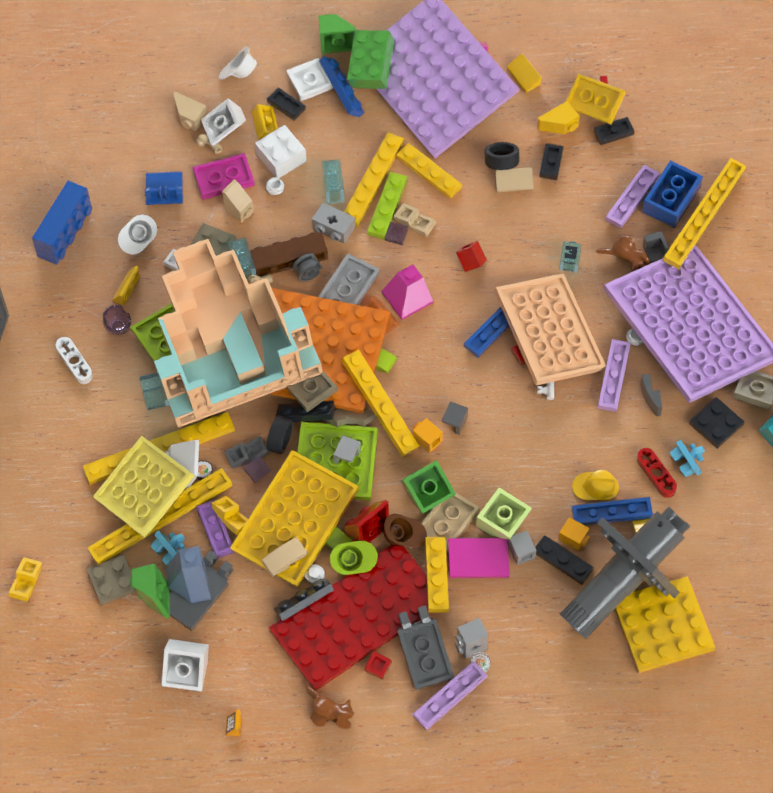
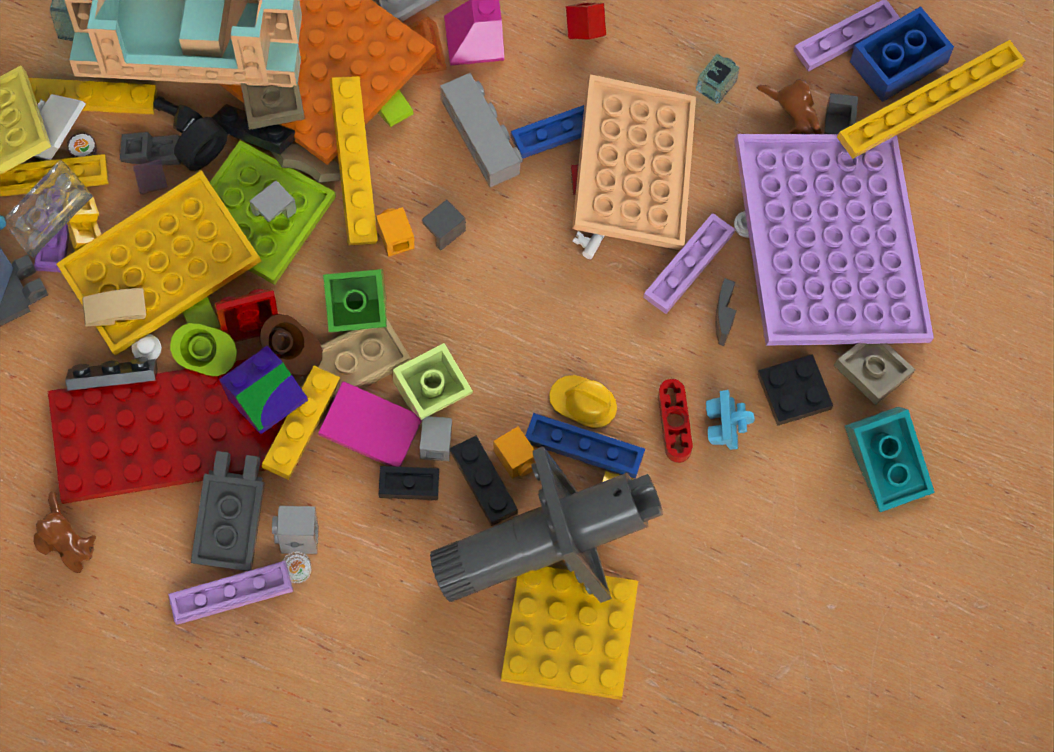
camera: 20 degrees right, 5 degrees up
(207, 516) = (47, 208): none -> clear plate
(259, 423) = (183, 115): none -> black bar
(378, 665) = (159, 507): red plate -> none
(406, 564) = (263, 390): none -> dark purple slope
(444, 350) = (480, 129): none -> light grey brick
(520, 581) = (409, 483): none -> black plate

